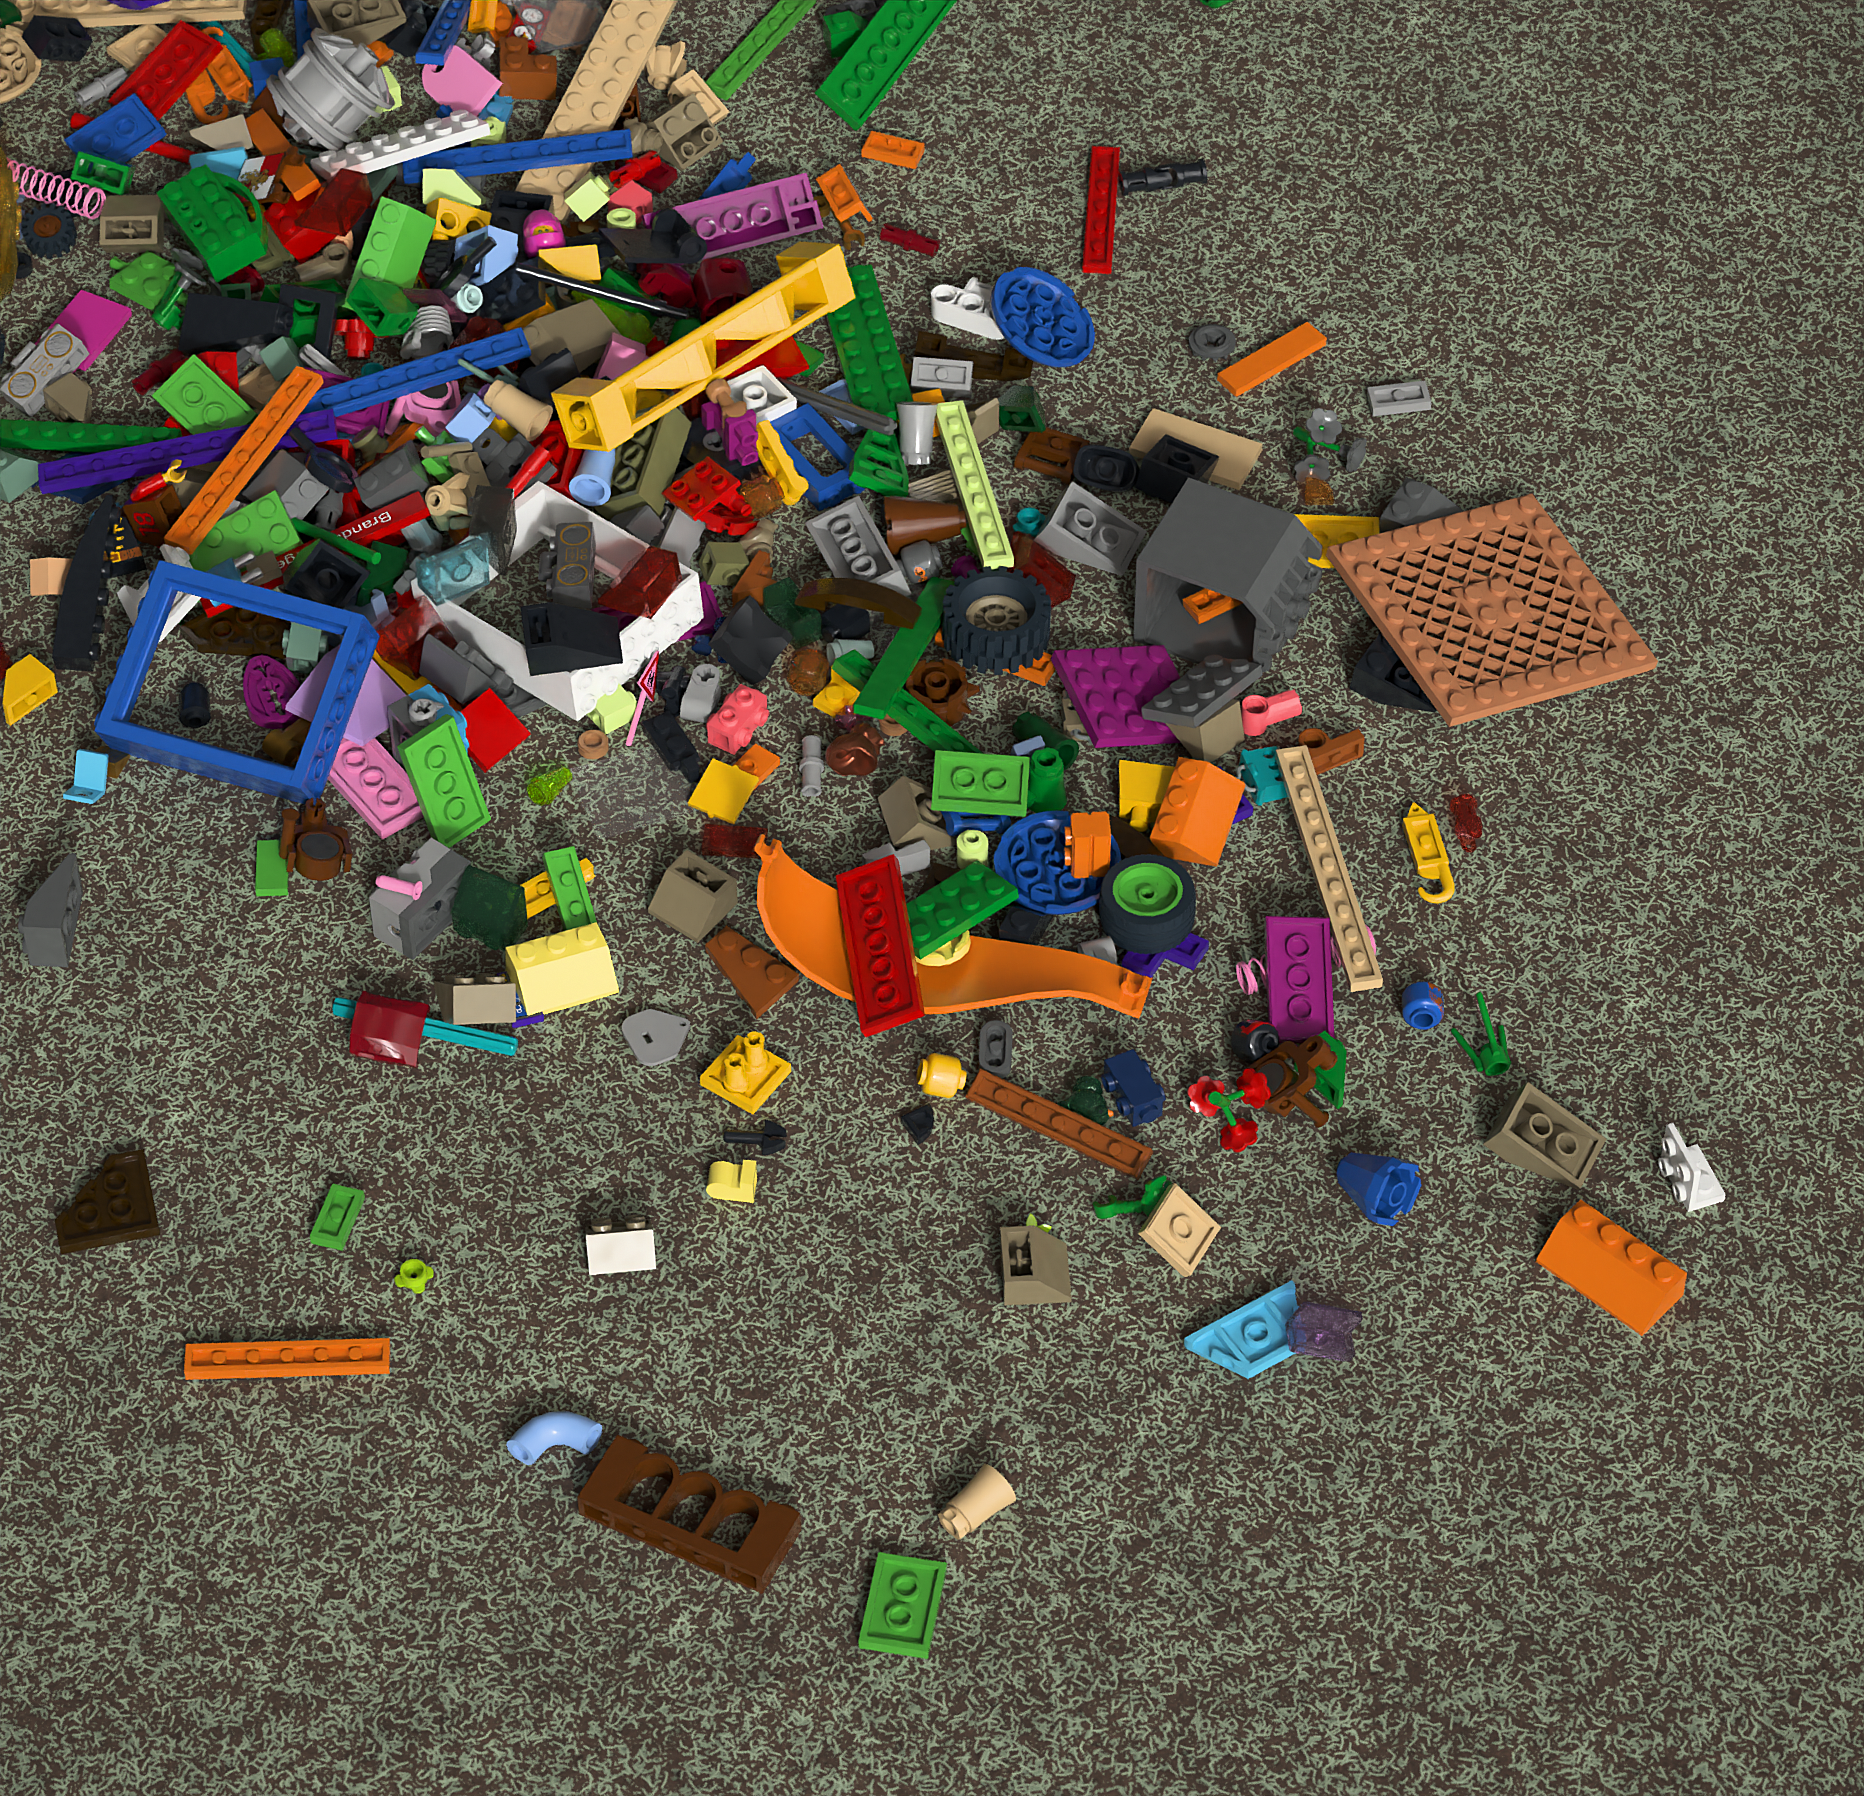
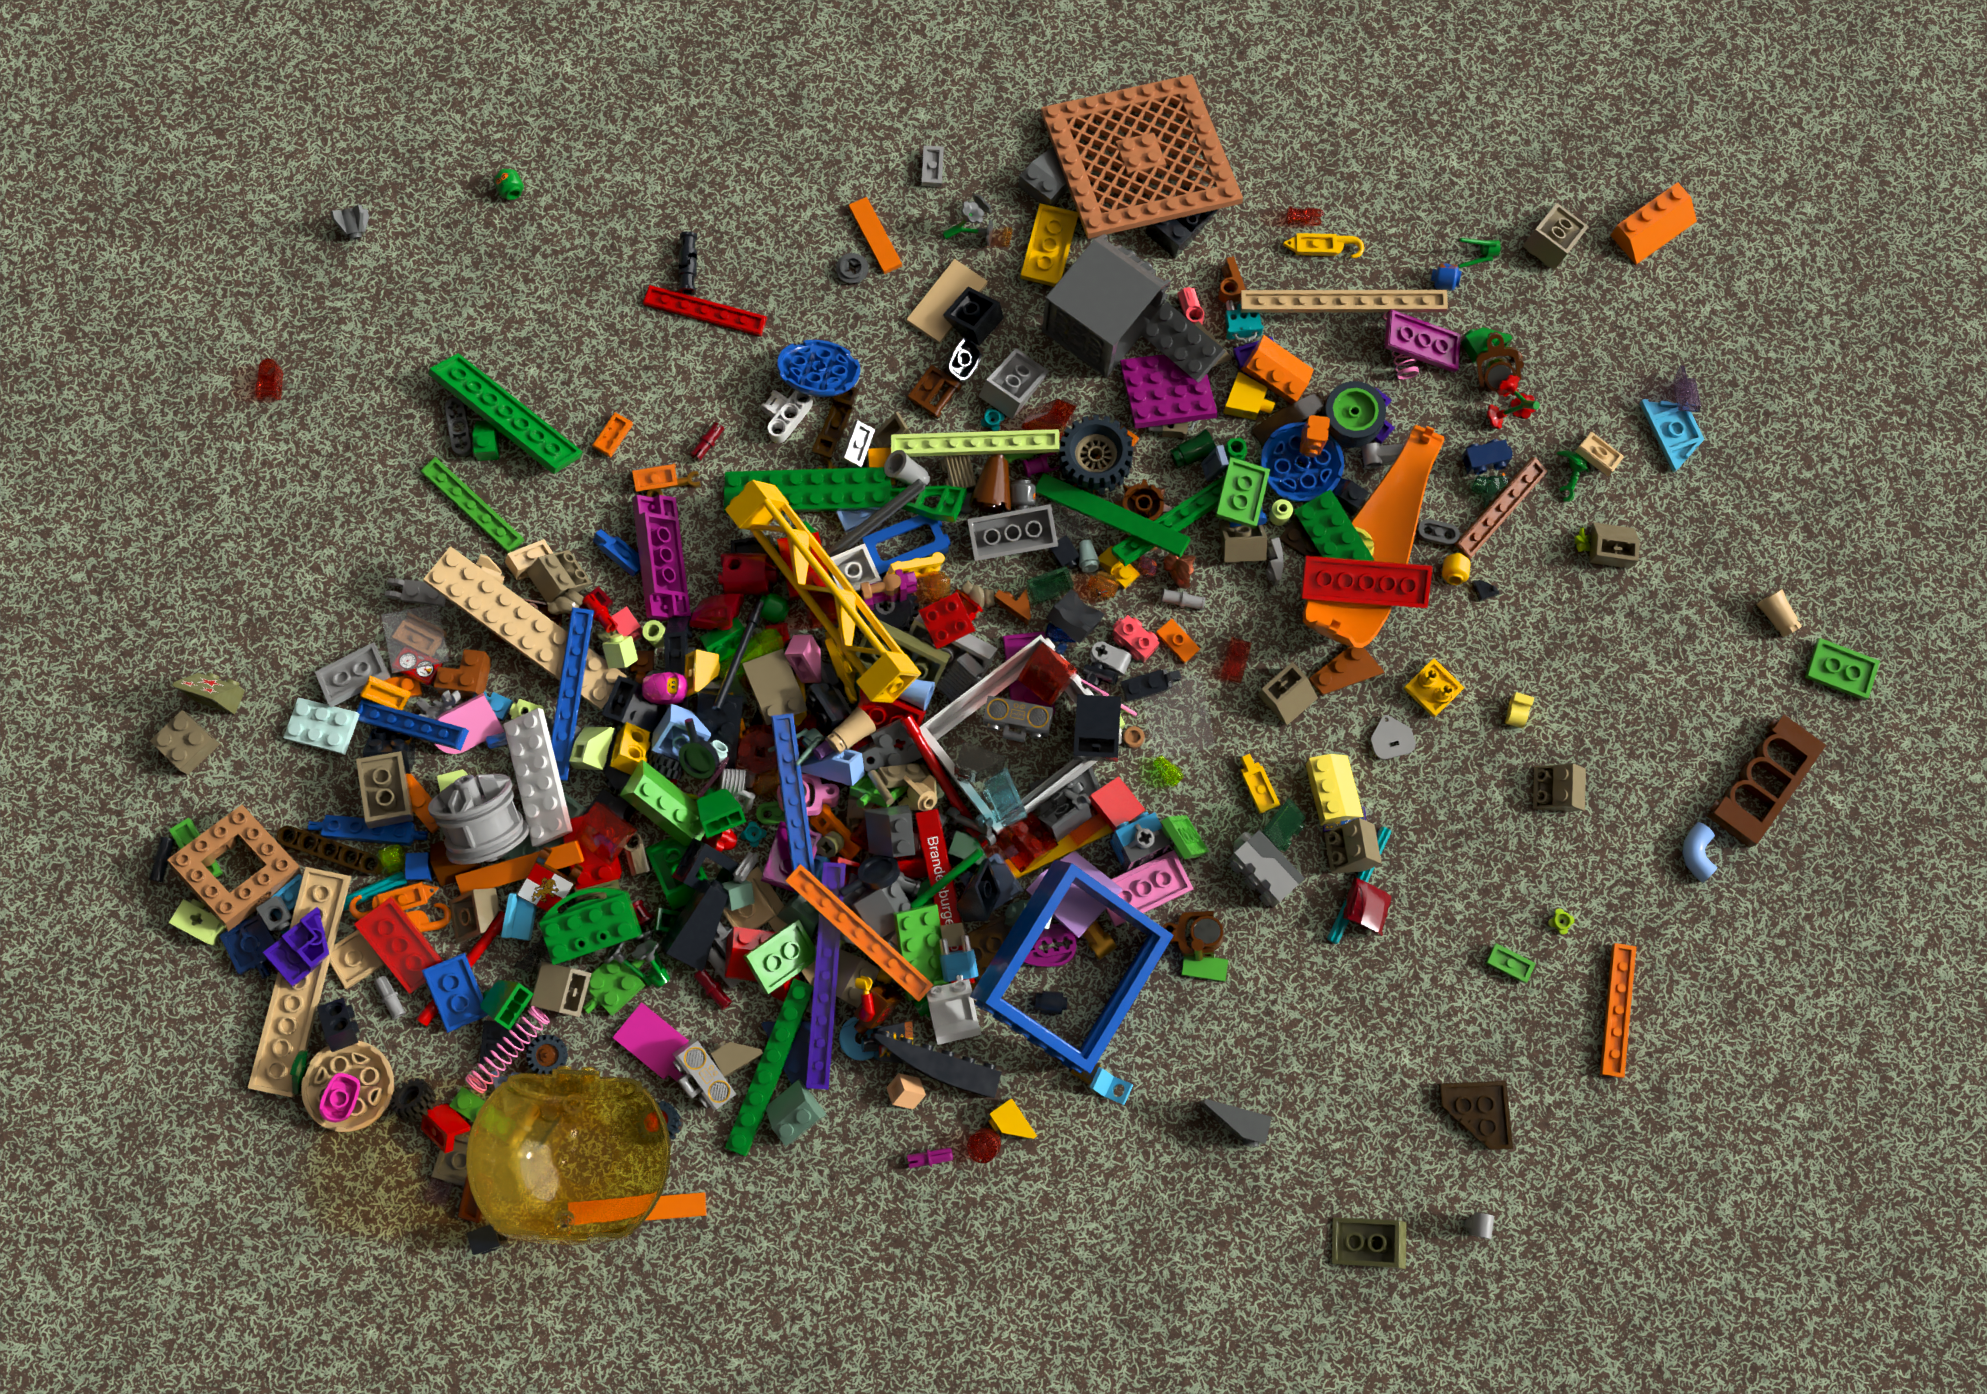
camera: 85 degrees left, 25 degrees up
(400, 886) = (1280, 876): bright pink piece -> none
(569, 888) = (1277, 771): bright green plate -> none
(667, 242) = (692, 610): black door -> none
(723, 563) = (996, 621): olive brick -> none
(723, 791) = (1196, 659): yellow piece -> none
(759, 1137) = (1481, 689): black bar -> none
(862, 594) = (1064, 538): dark brown slope -> none
(1021, 410) = (897, 399): dark green slope -> none
(1254, 1039) = (1461, 378): black head -> none
(1379, 1185) = (1581, 335): blue cone -> none
(1689, 1172) = (1594, 164): white bracket -> none

